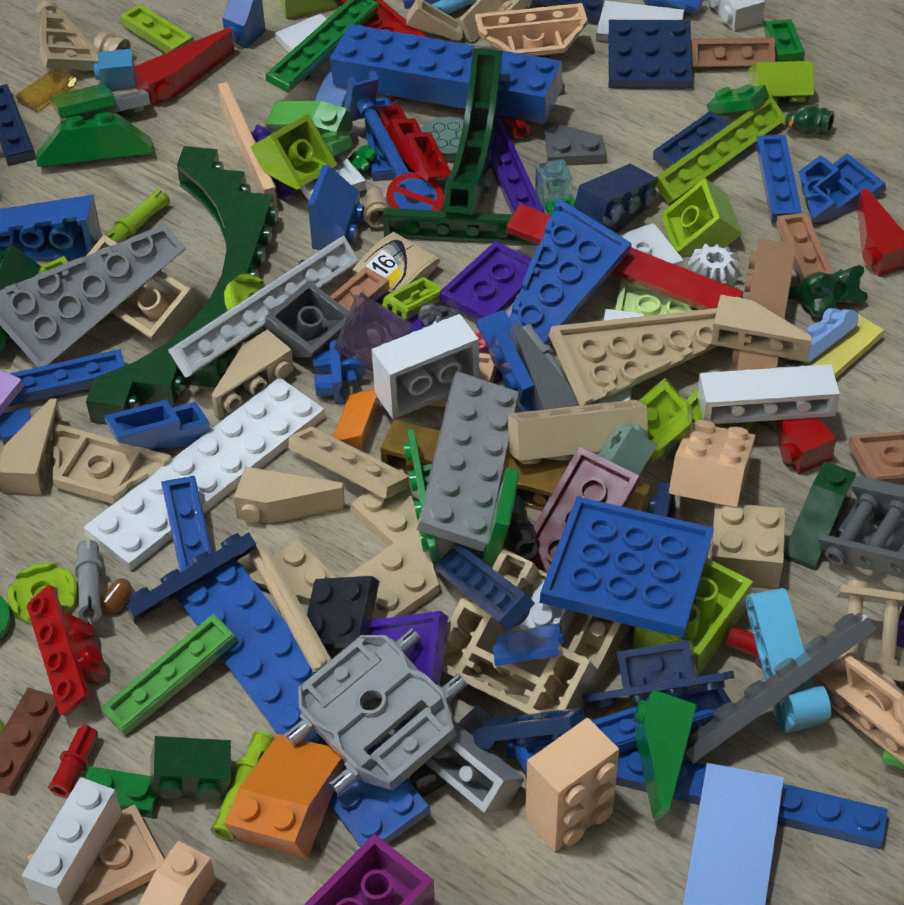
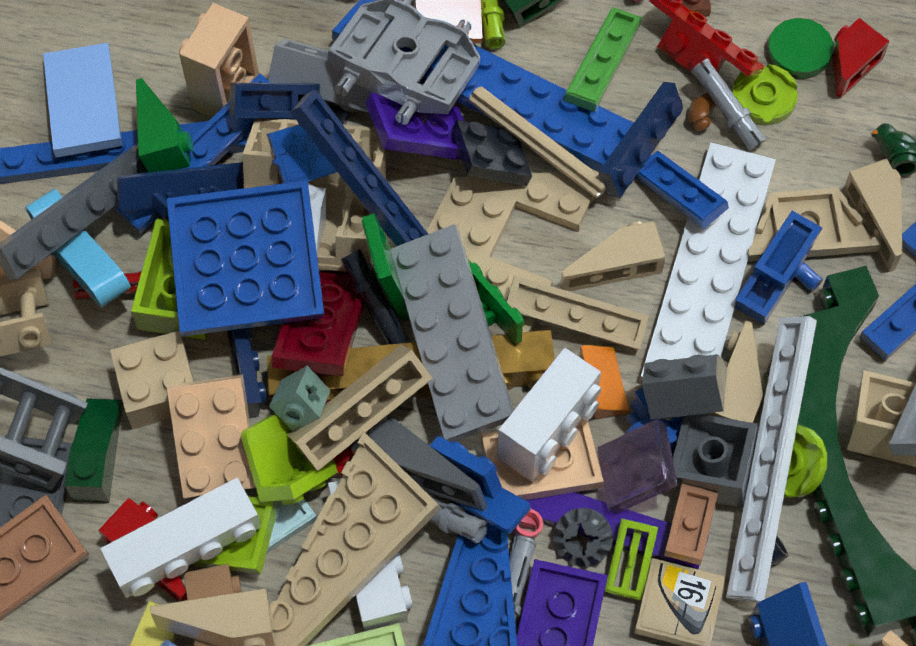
camera: 155 degrees right, 15 degrees up
(299, 355) = (685, 386): none -> dark grey slope

